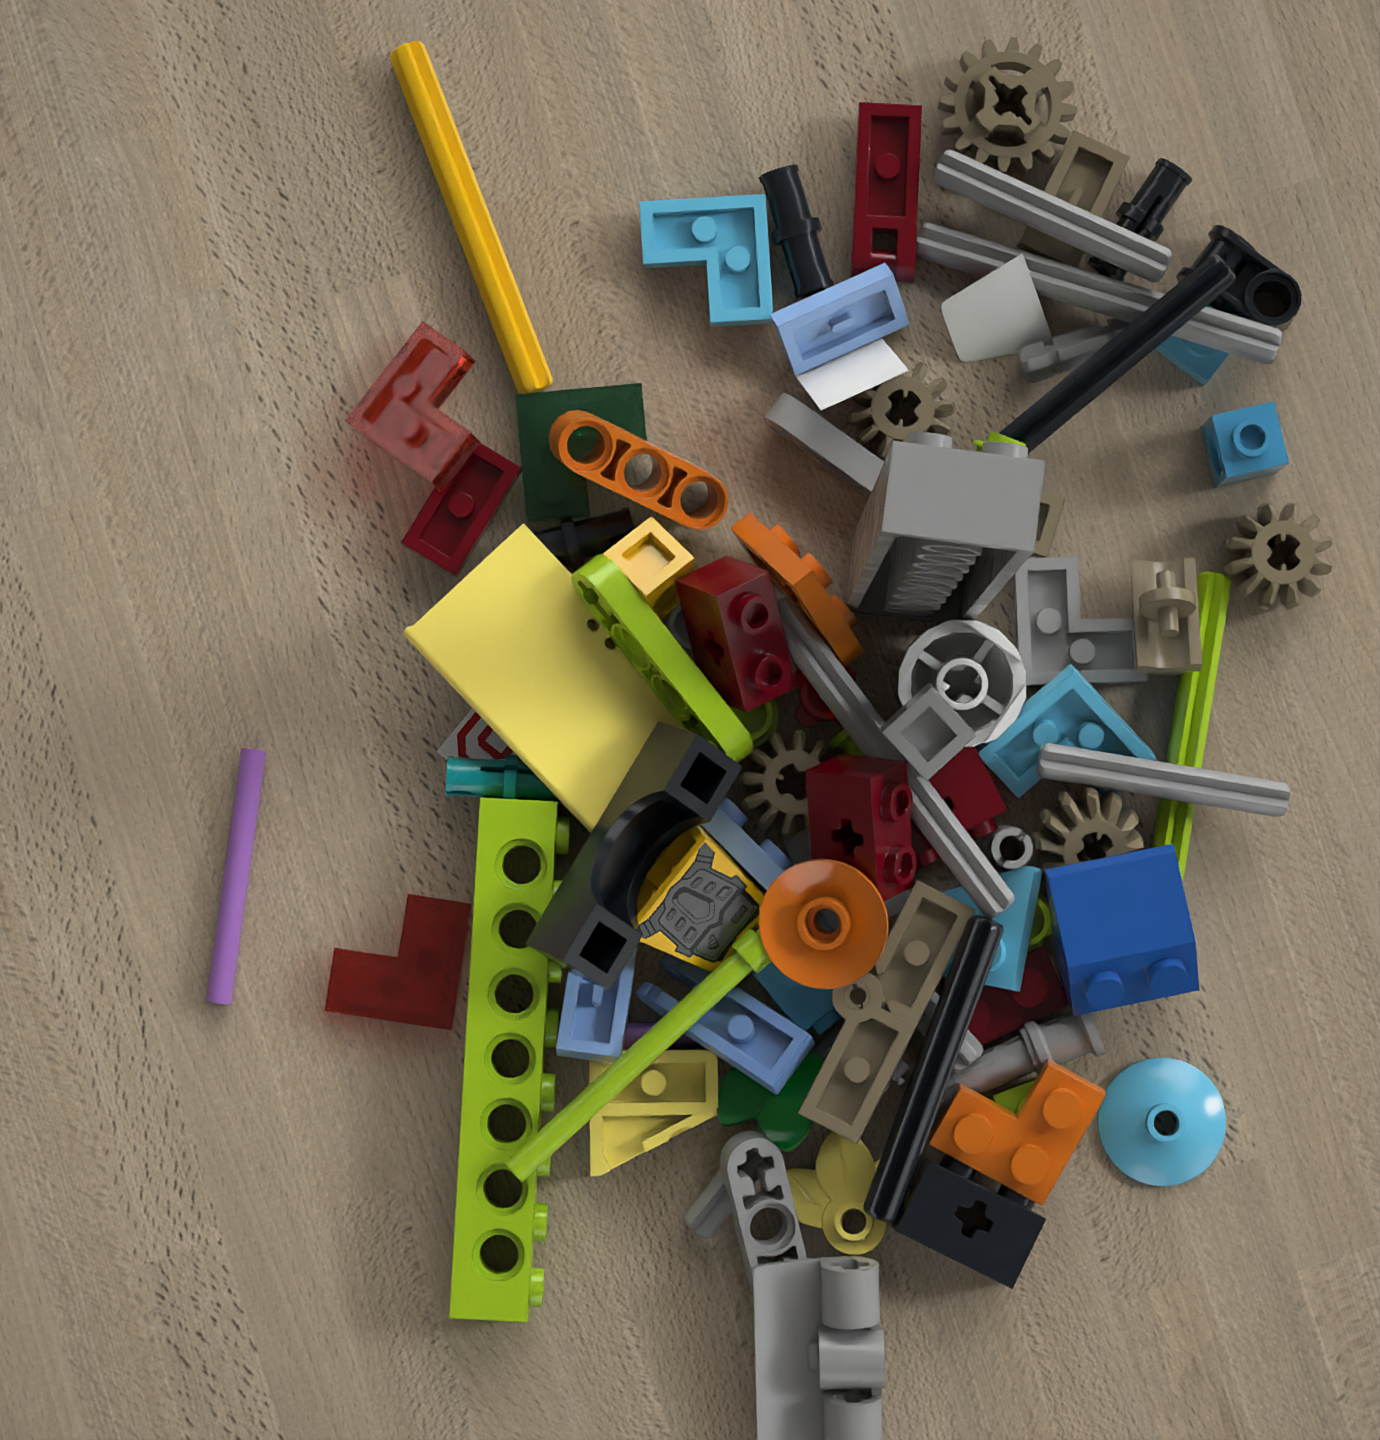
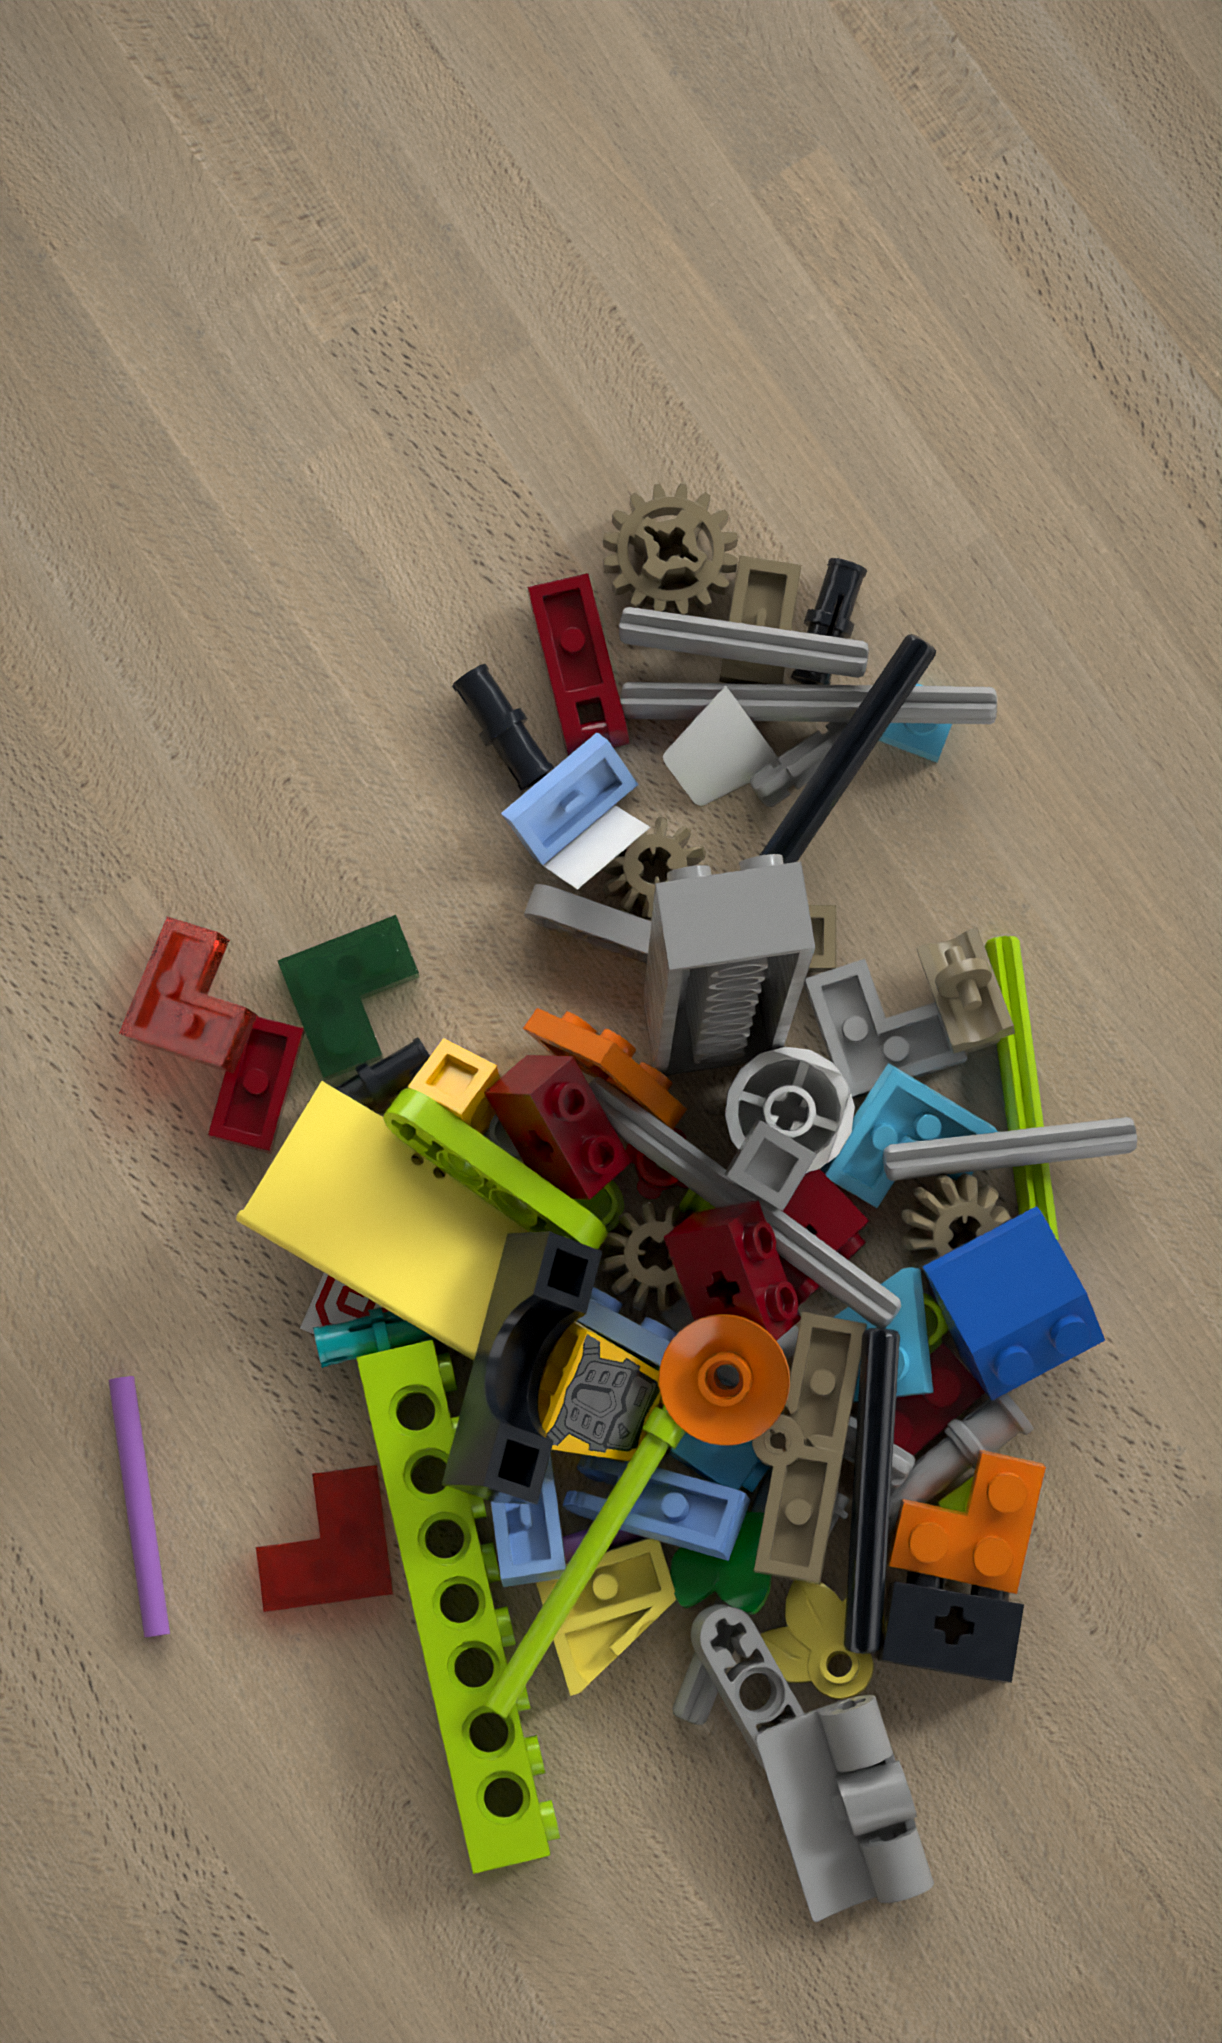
camera: 15 degrees left, 5 degrees down
(471, 218) = (185, 804): yellow axle -> none
(661, 489) = (446, 1008): orange beam -> none
(725, 236) = (435, 752): medium azure plate -> none
(991, 845) = (881, 1243): light grey pin -> none
(1129, 1116) = (1075, 1486): medium azure dish -> none
(1244, 444) = (992, 806): dark azure brick -> none
(1253, 276) = (952, 645): black piece -> none
(1300, 559) = (1078, 901): dark tan gear -> none

